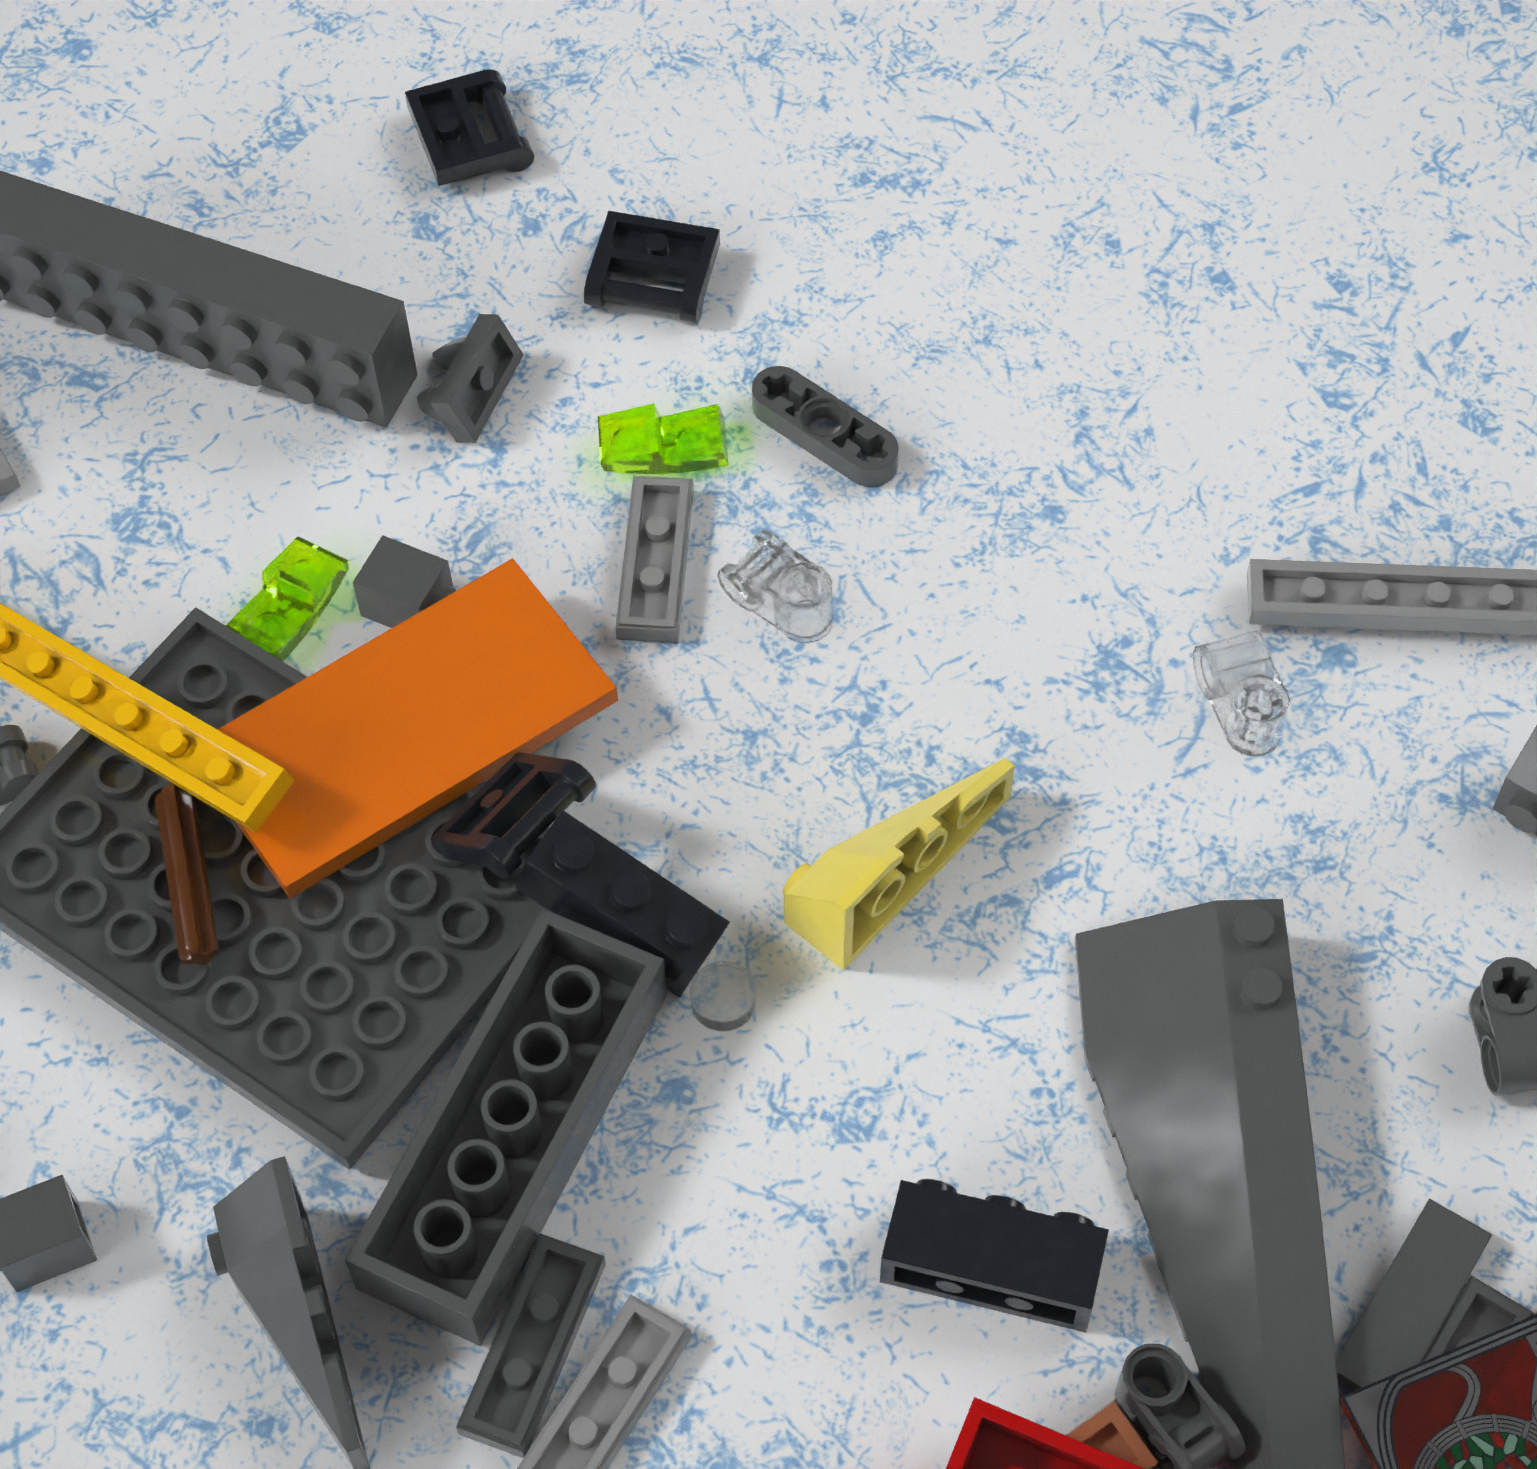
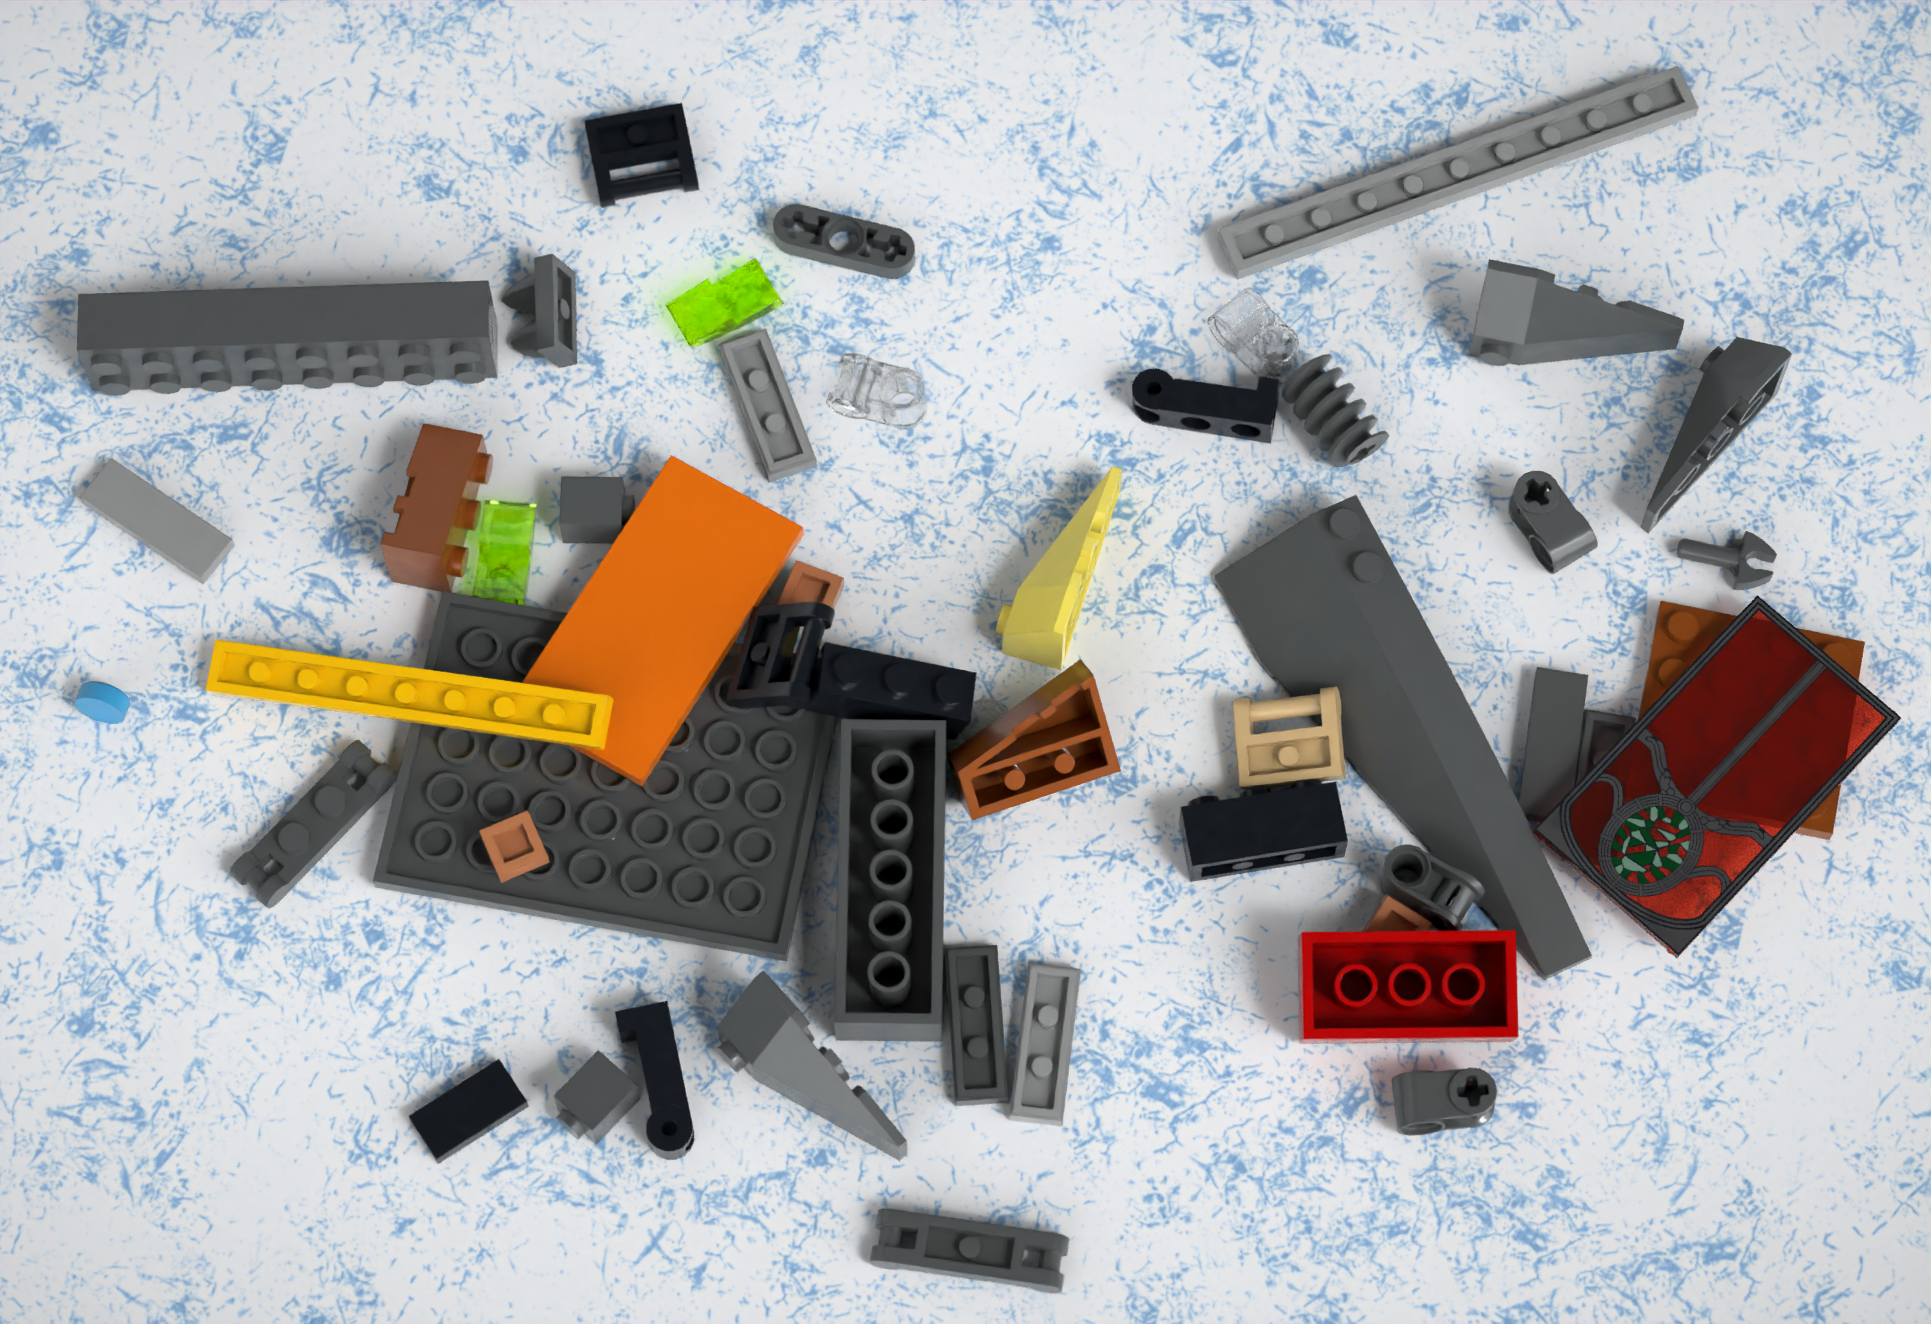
camera: 25 degrees left, 10 degrees up
(103, 902) = (514, 846): none -> nougat plate
(128, 1245) = (670, 1124): none -> black leg
(186, 876) = (561, 800): reddish brown axle -> none
(235, 522) = (437, 508): none -> dark orange wedge
(451, 132) = (413, 95): black plate -> none
(606, 762) = (811, 585): none -> nougat plate
(760, 1039) = (1037, 747): none -> dark orange wedge
(1071, 1176) = (1293, 754): none -> tan plate
(1153, 743) = (1206, 406): none -> black leg
(1297, 803) = (1330, 415): none -> dark grey piece

